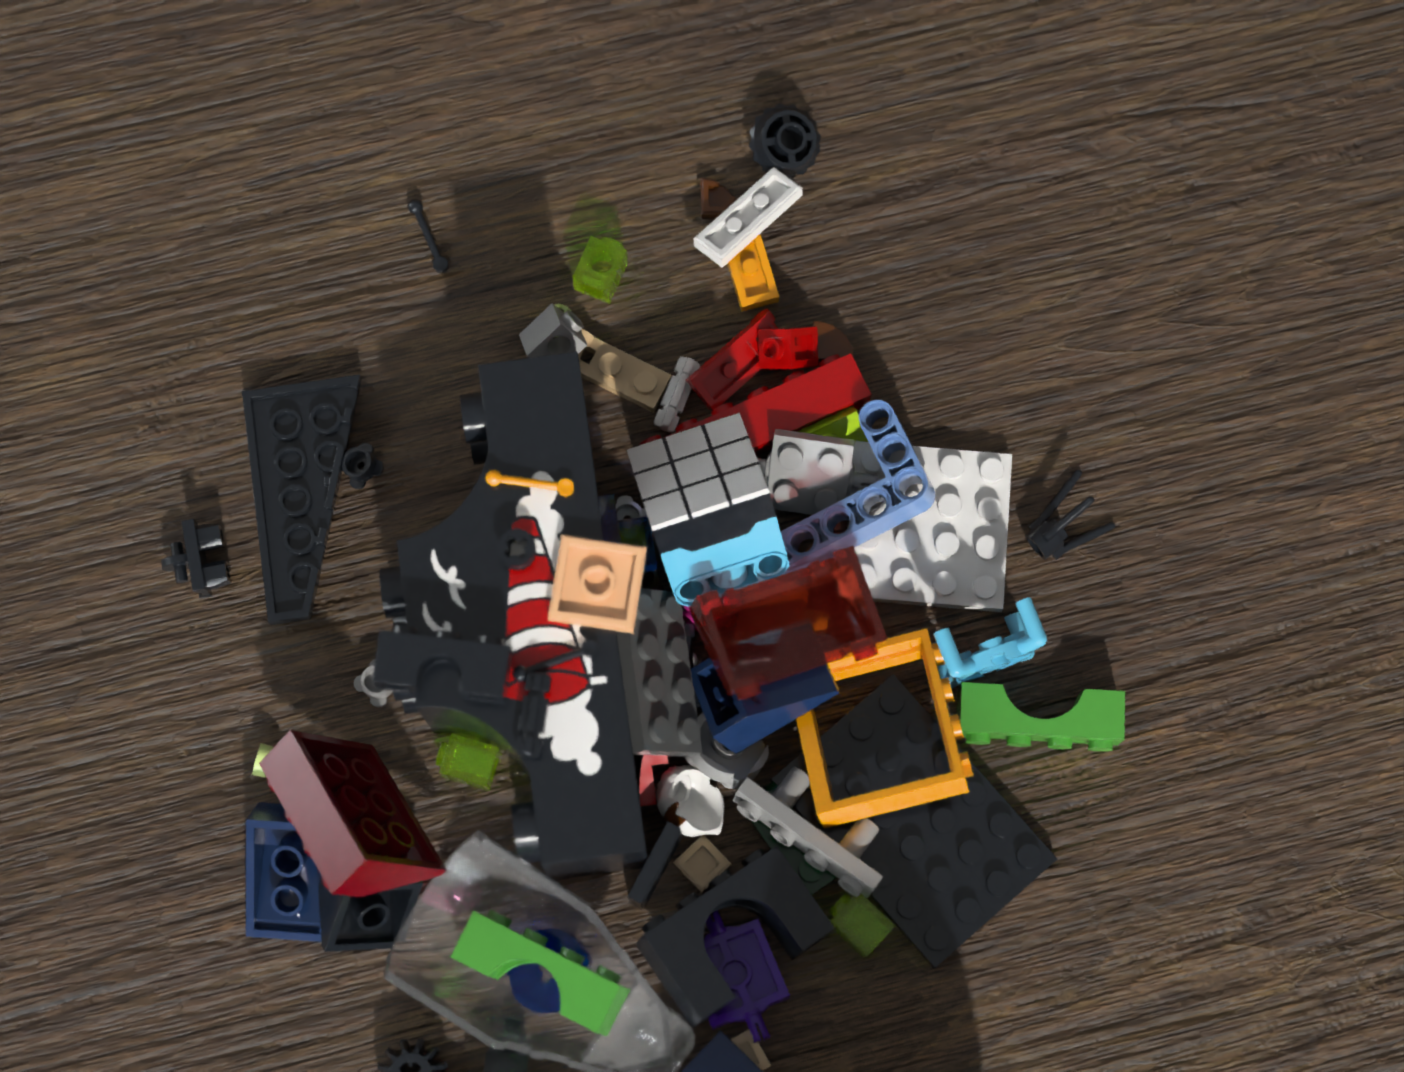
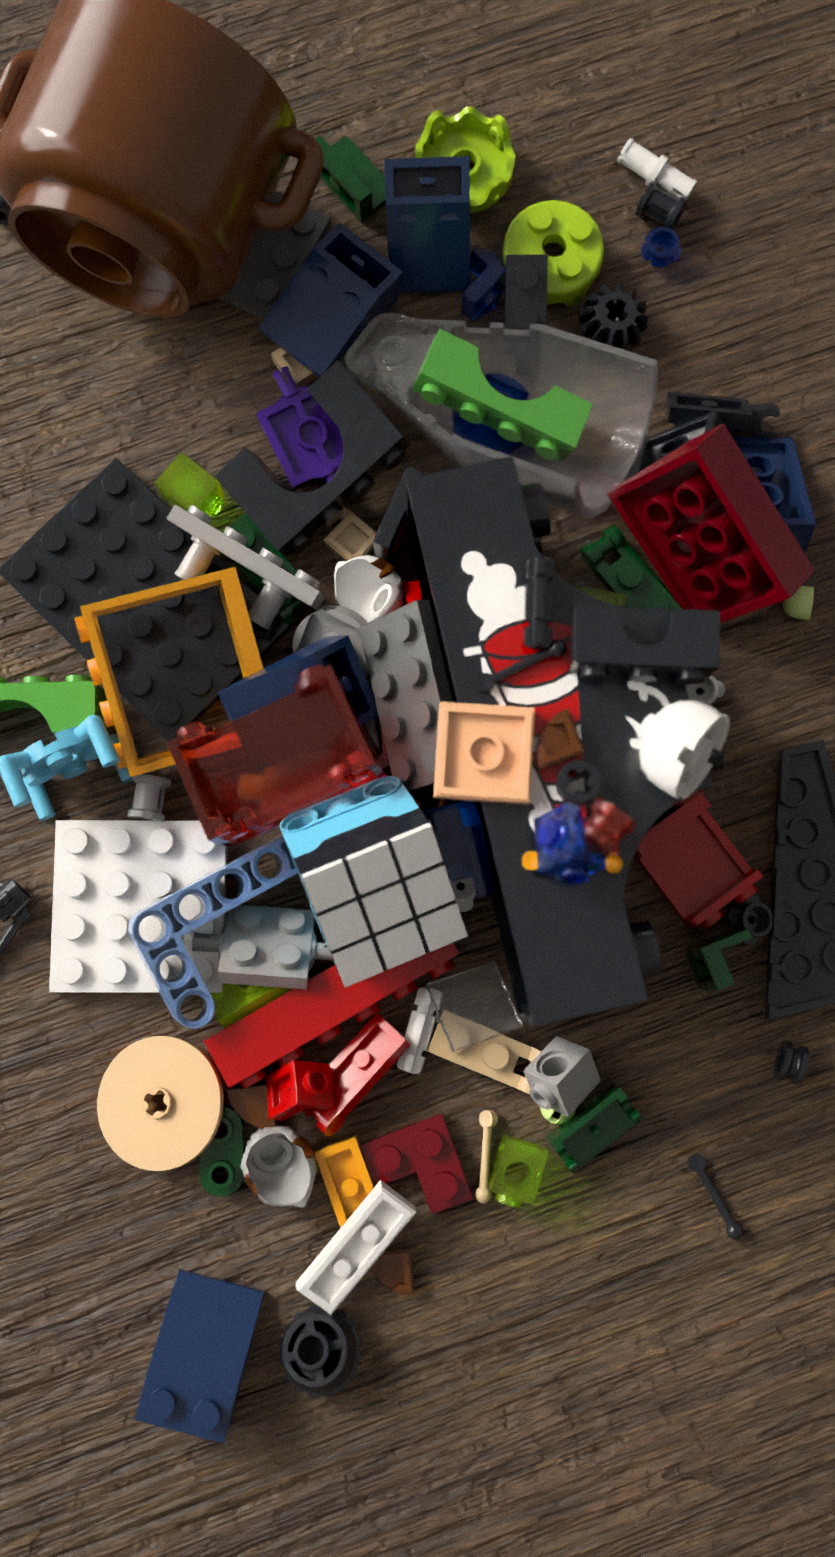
camera: 175 degrees right, 5 degrees up
(309, 964) = (733, 412): none -> black plate
(344, 338) = (791, 1062): none -> black bush
(397, 506) = (695, 864): none -> red panel
(400, 437) = (709, 963): none -> dark green panel
(424, 568) = (679, 744): none -> white cylinder
(428, 795) = (627, 574): none -> dark green plate
(498, 505) = (607, 827): none -> clear red wheel
(529, 299) = (594, 1128): none -> dark green hinge
(530, 588) = (558, 741): none -> reddish brown tile
(538, 491) = (563, 847): none -> clear blue bracket
(622, 314) = (487, 1120): none -> tan hinge
(625, 408) = (473, 1006): none -> clear piece
(682, 294) = (422, 1149): none -> dark red plate
(809, 286) = (279, 1167): none -> light grey hair
(861, 306) = (224, 1152): none -> dark green plate
(886, 145) = (200, 1356): none -> dark blue slope
(886, 358) = (192, 1098): none -> tan piece
(914, 615) = (149, 797): none -> light grey bush

